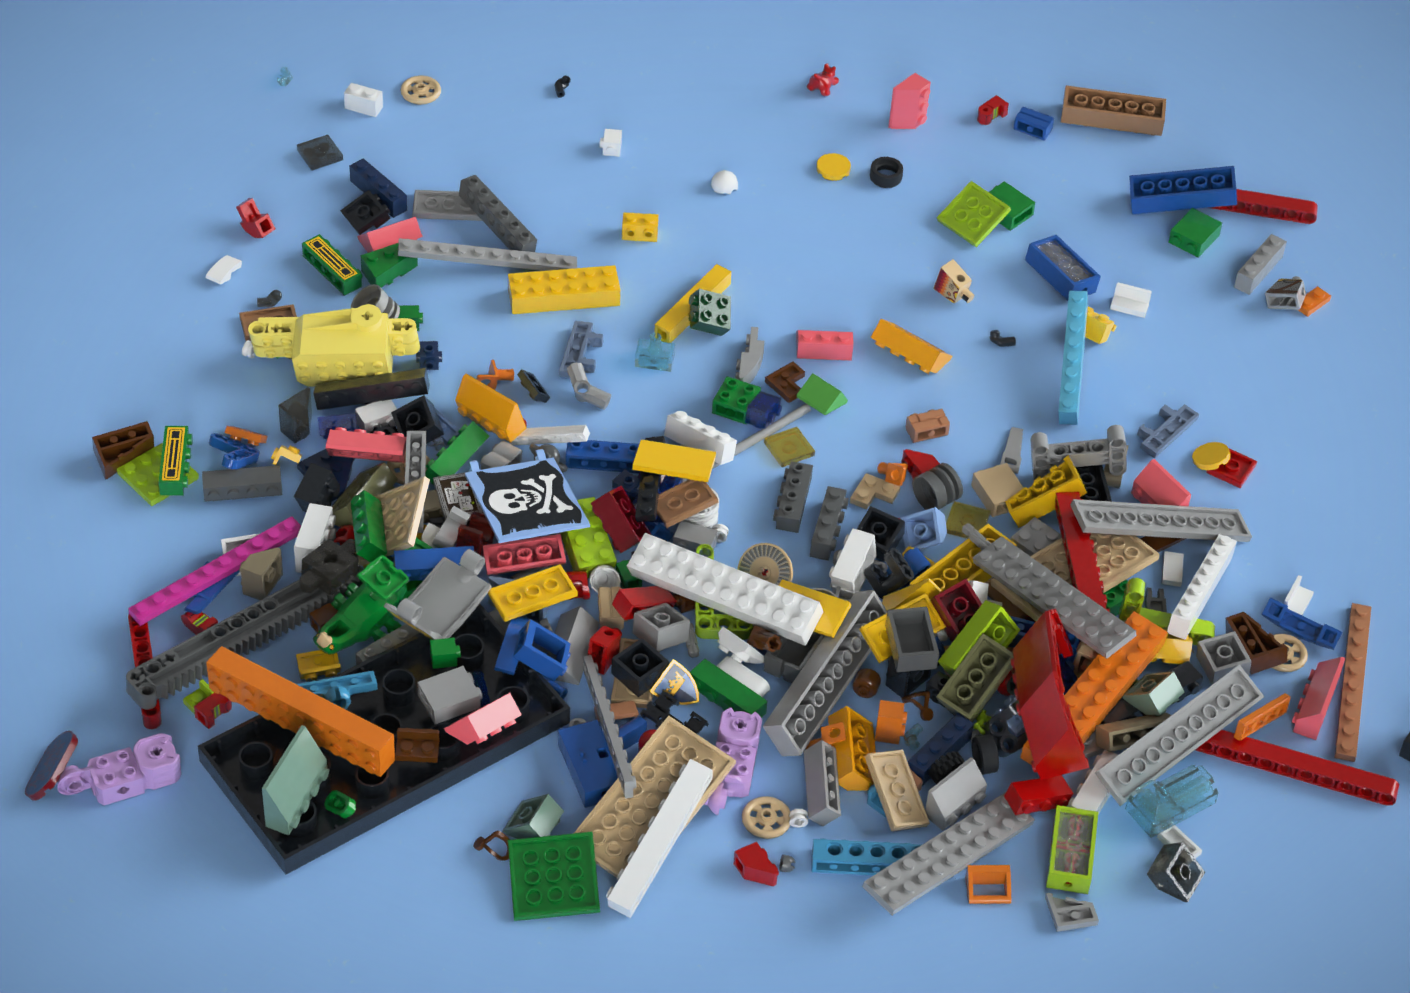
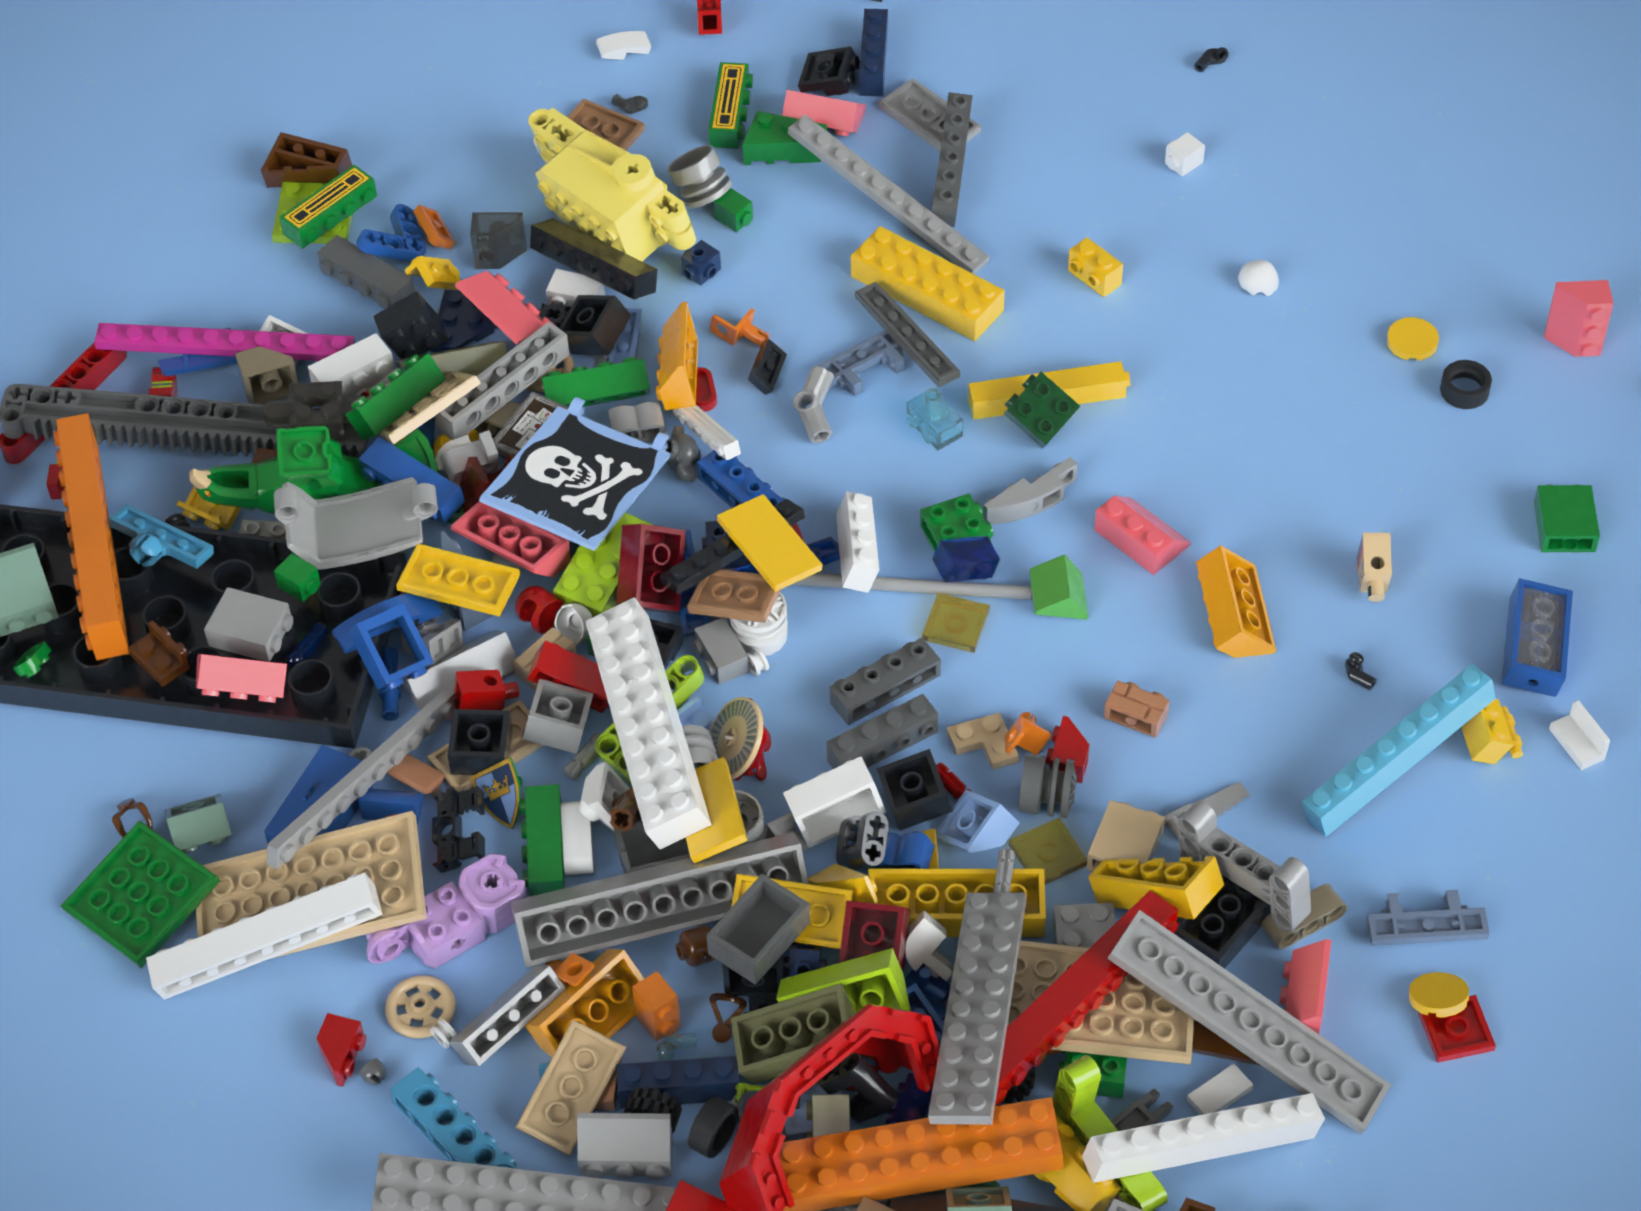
camera: 50 degrees right, 5 degrees up
(326, 423) = (523, 274): clear blue brick -> none
(589, 320) = (907, 334): none -> dark grey tile
(784, 381) = (1042, 540): reddish brown plate -> none
(823, 80) = (1523, 230): red animal -> none
(973, 214) = (1504, 500): lime plate -> none

